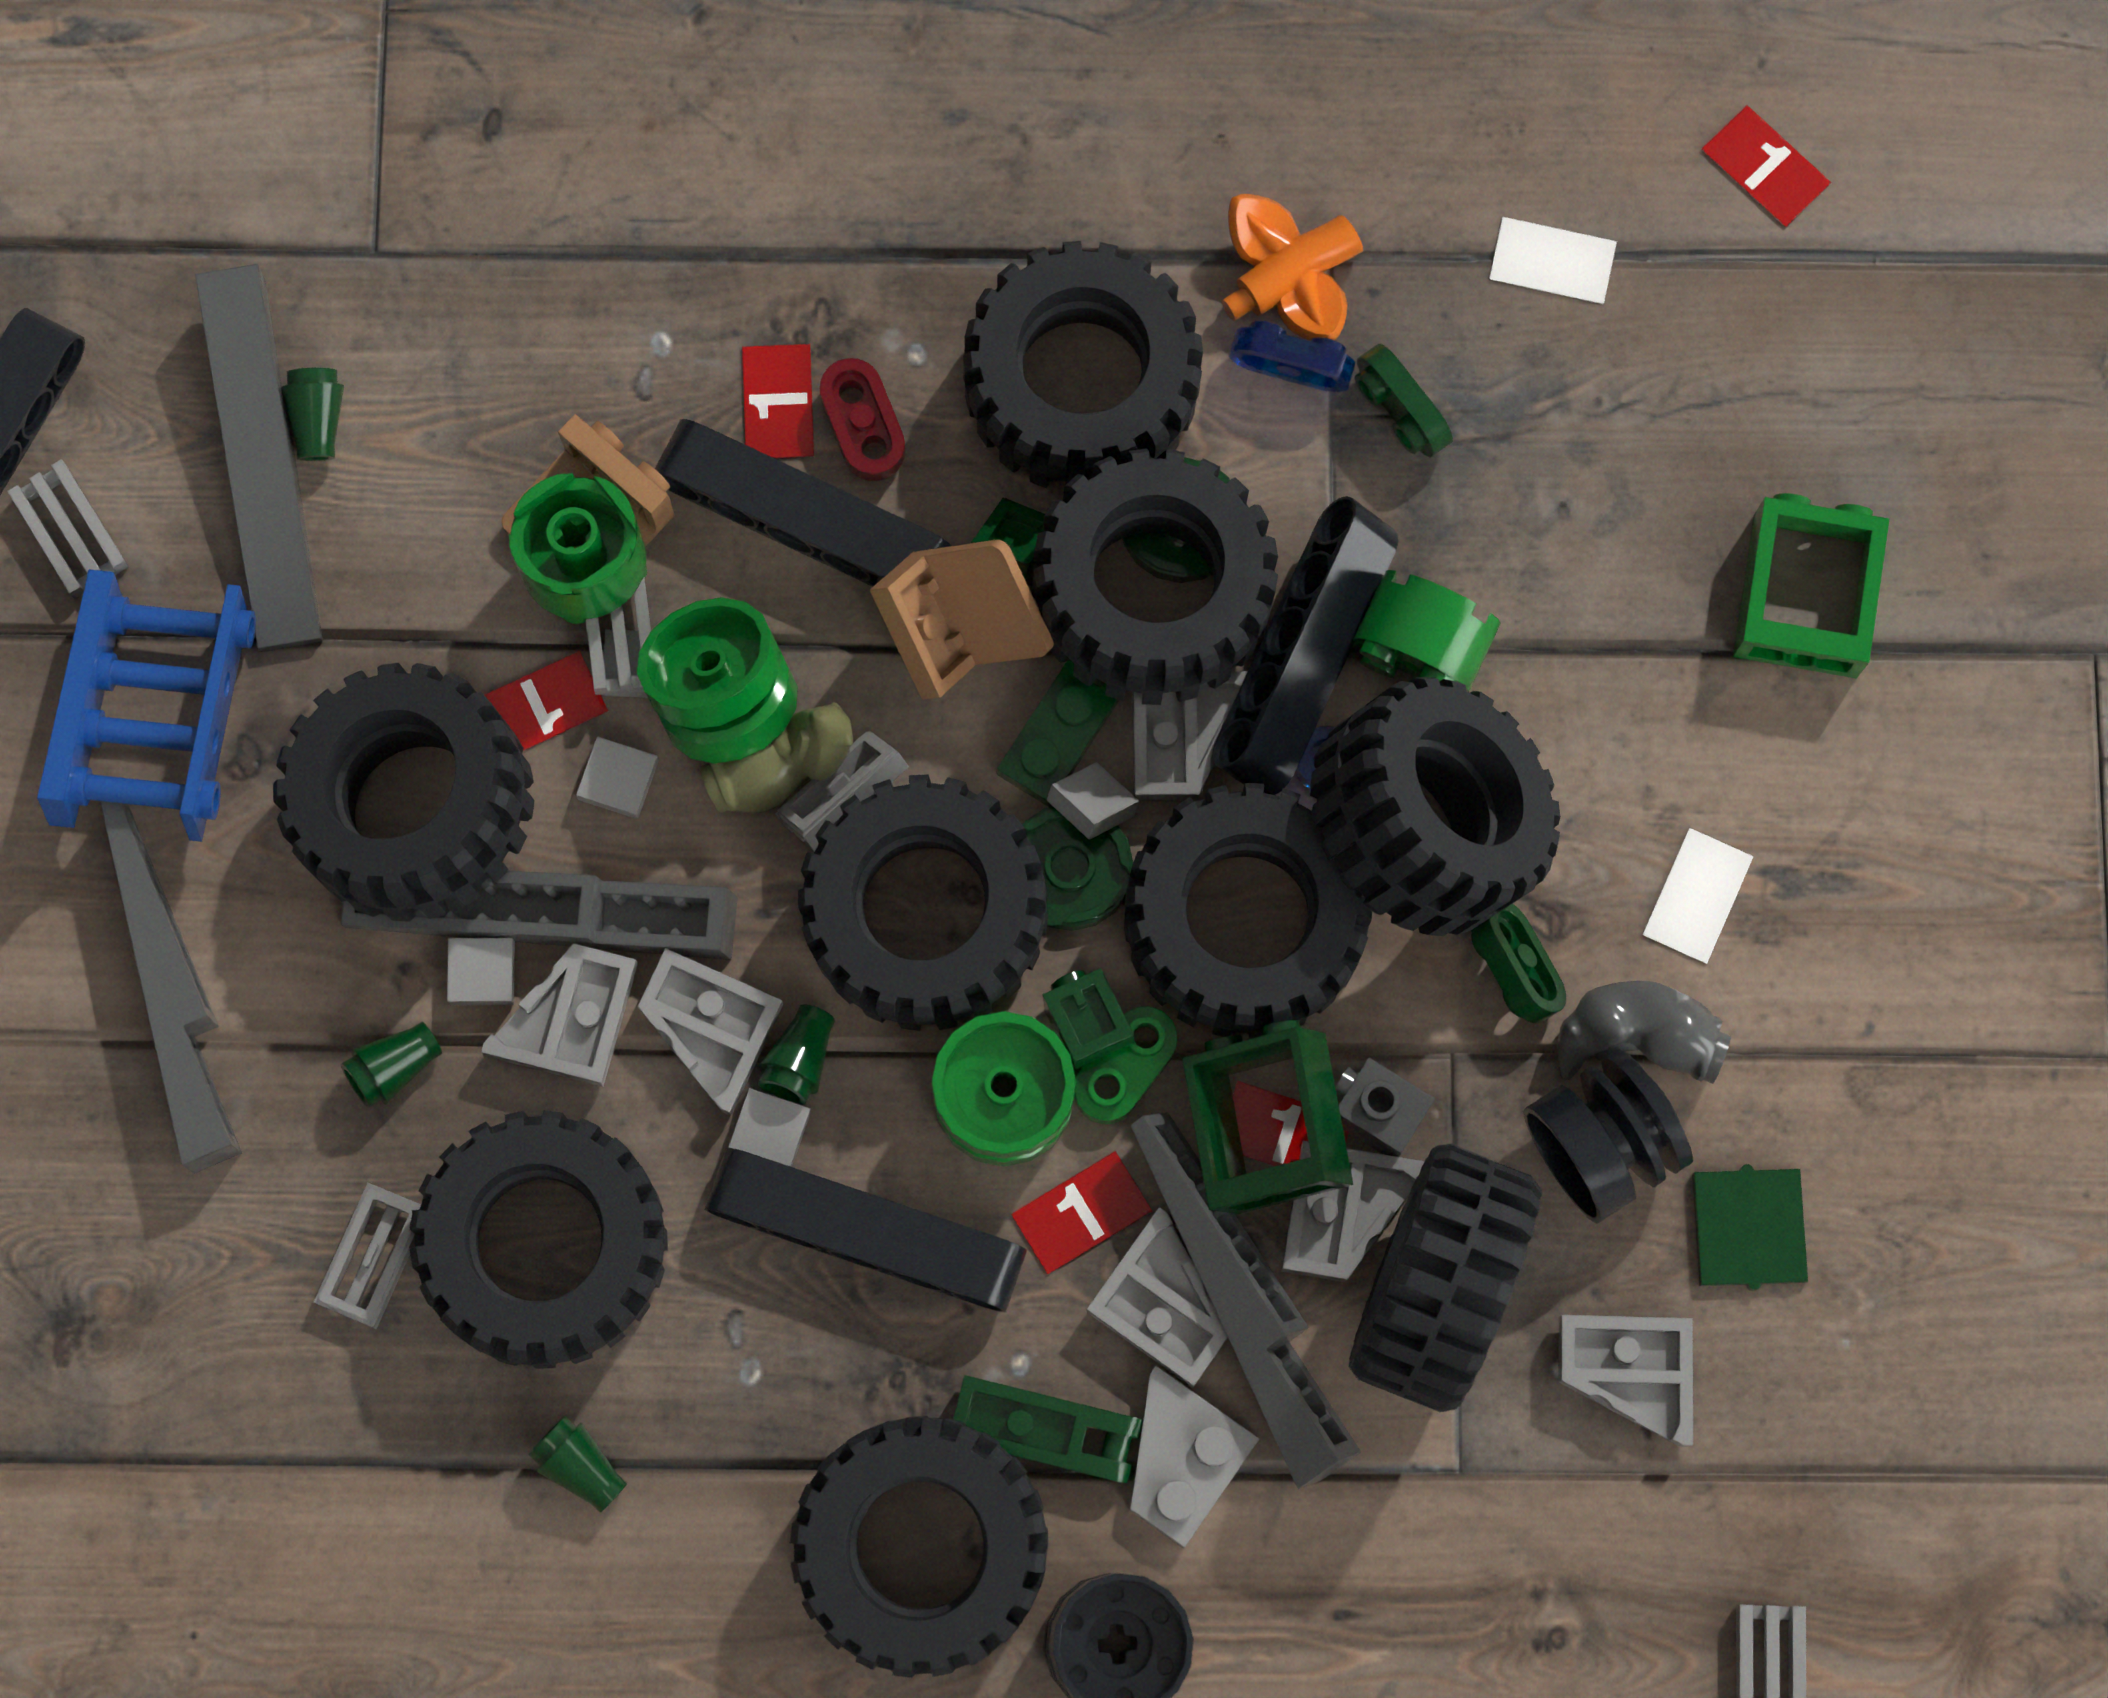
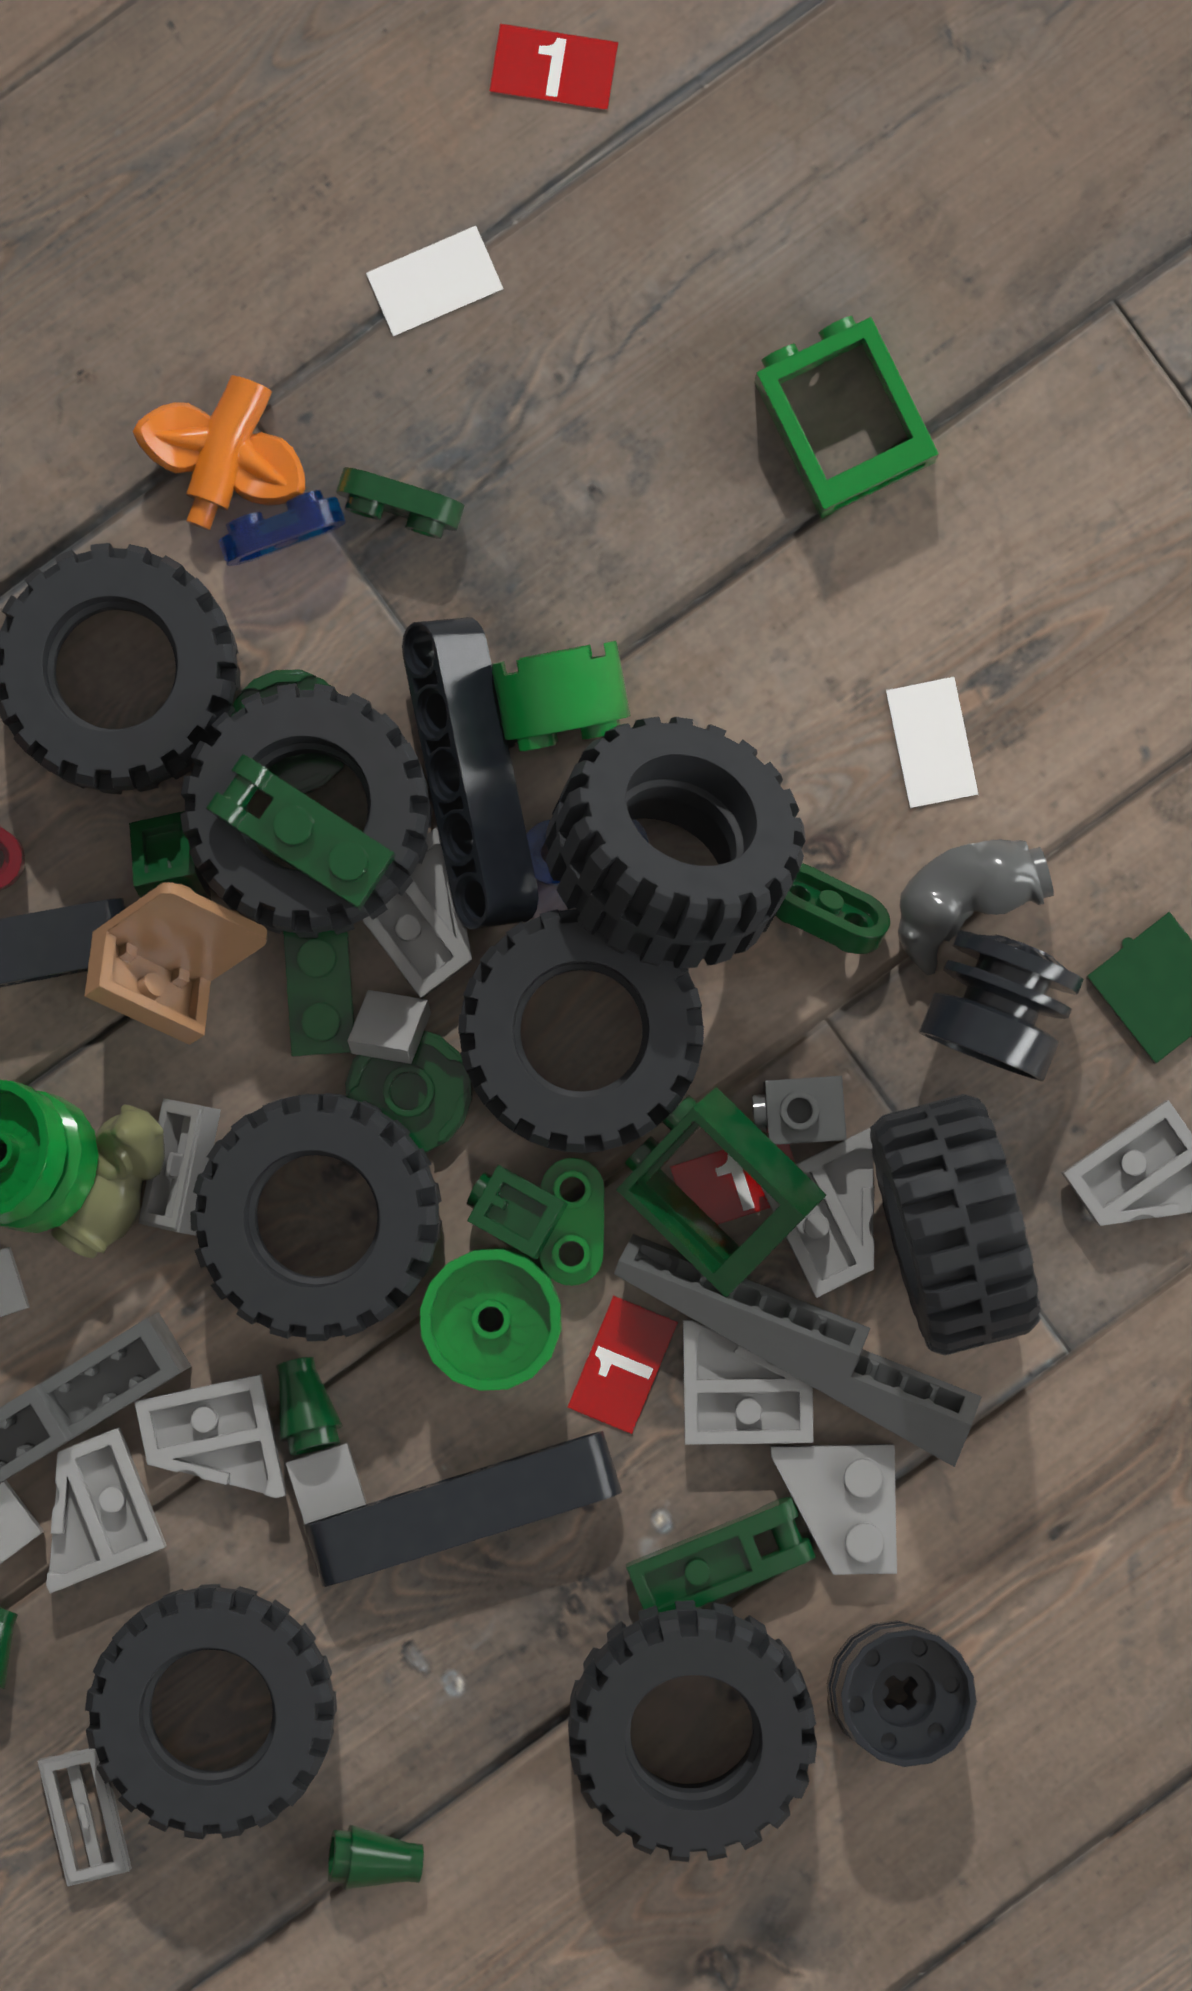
camera: 30 degrees left, 10 degrees up
(1141, 579) = (303, 833): none -> dark green plate

